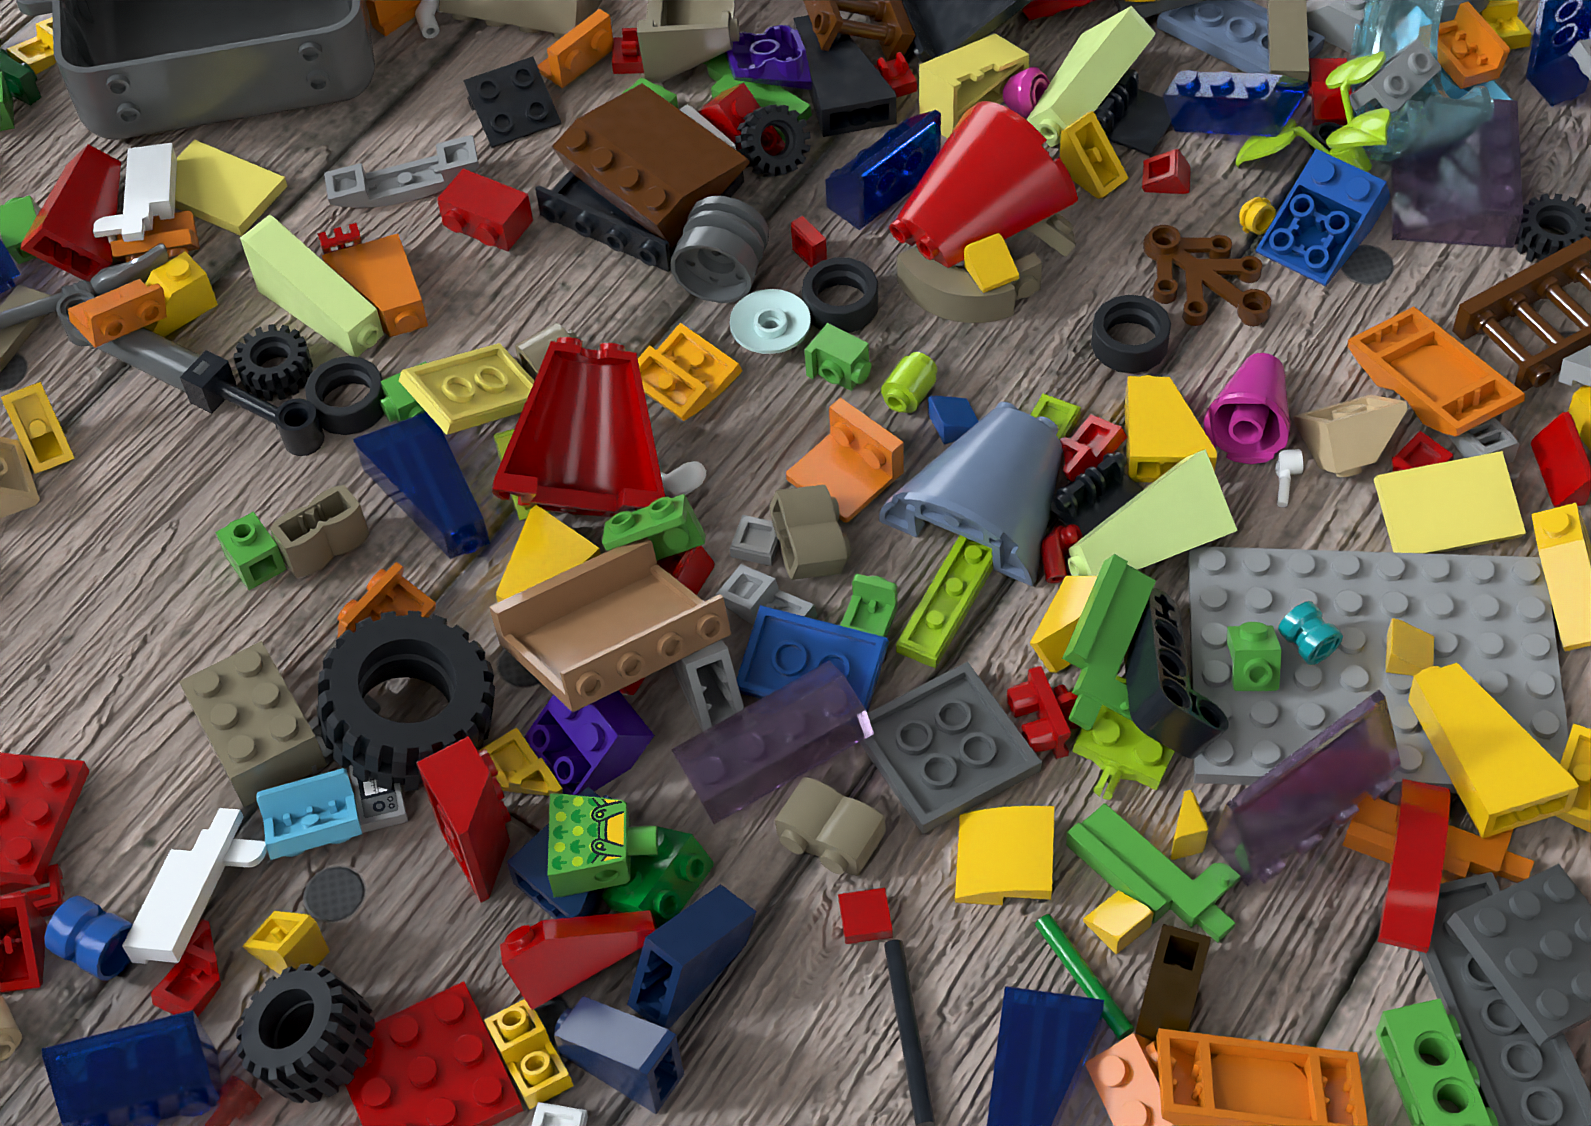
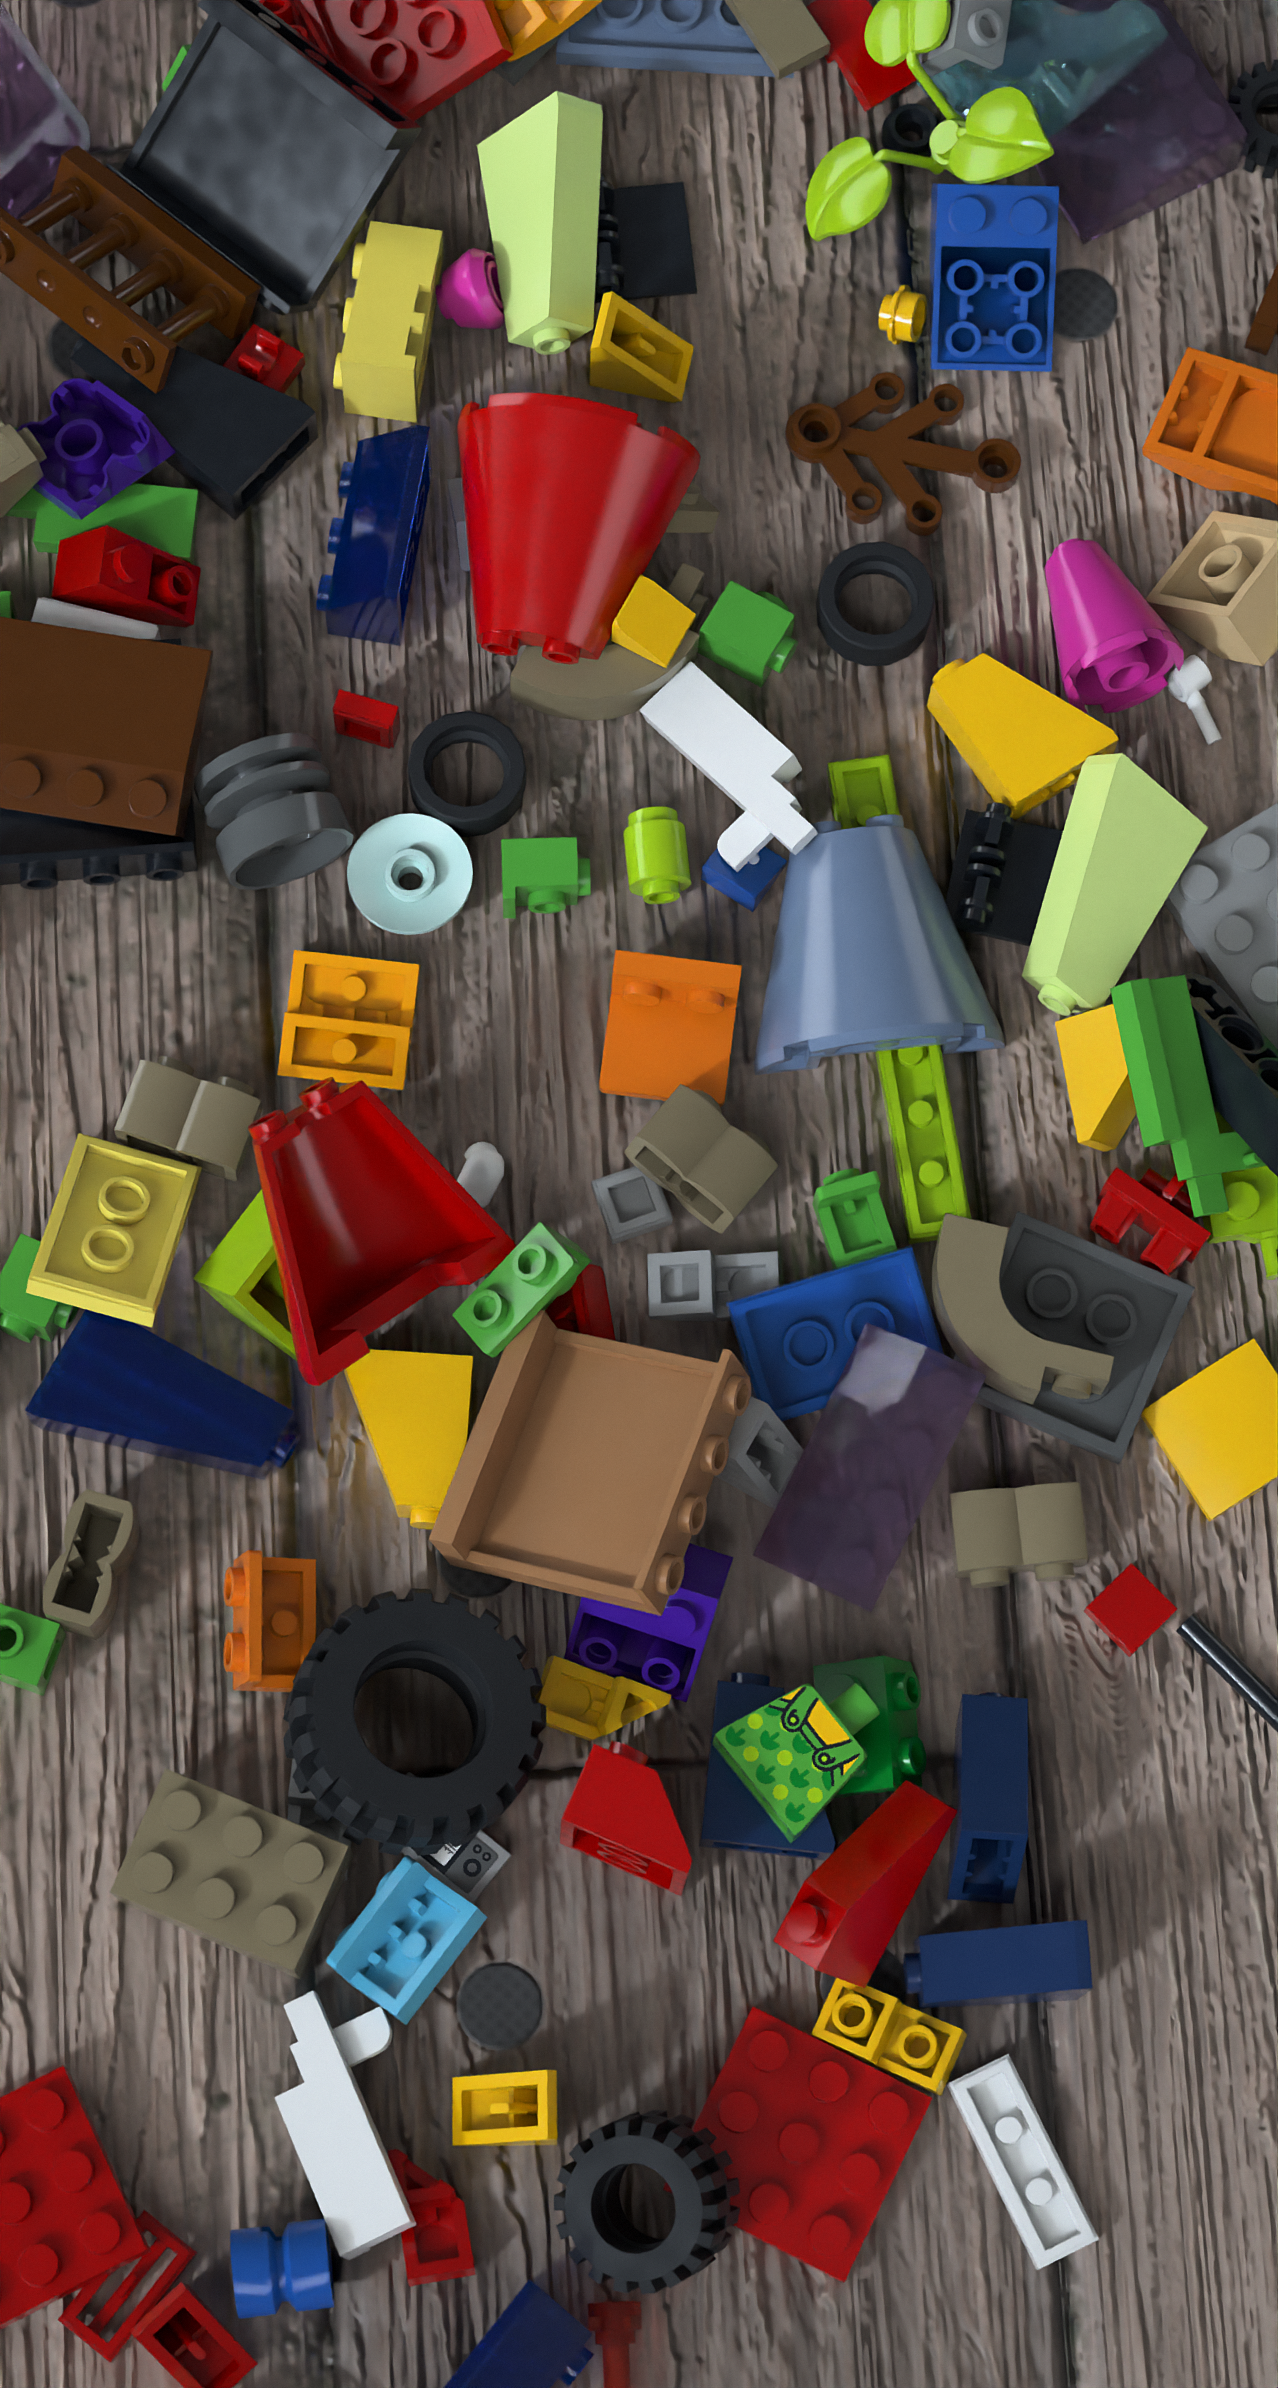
camera: 45 degrees left, 20 degrees up
(794, 140) = (174, 586): black tyre -> none
(898, 675) = (986, 1333): none -> dark tan arch
(990, 360) = (737, 758): none -> white piece
(1046, 309) = (748, 633): none -> bright green brick
(1054, 550) = (1001, 985): red arm -> none
(1089, 445) = (941, 808): red slope -> none
(1166, 173) = (737, 311): red slope -> none
(1232, 102) = (765, 151): clear blue slope -> none

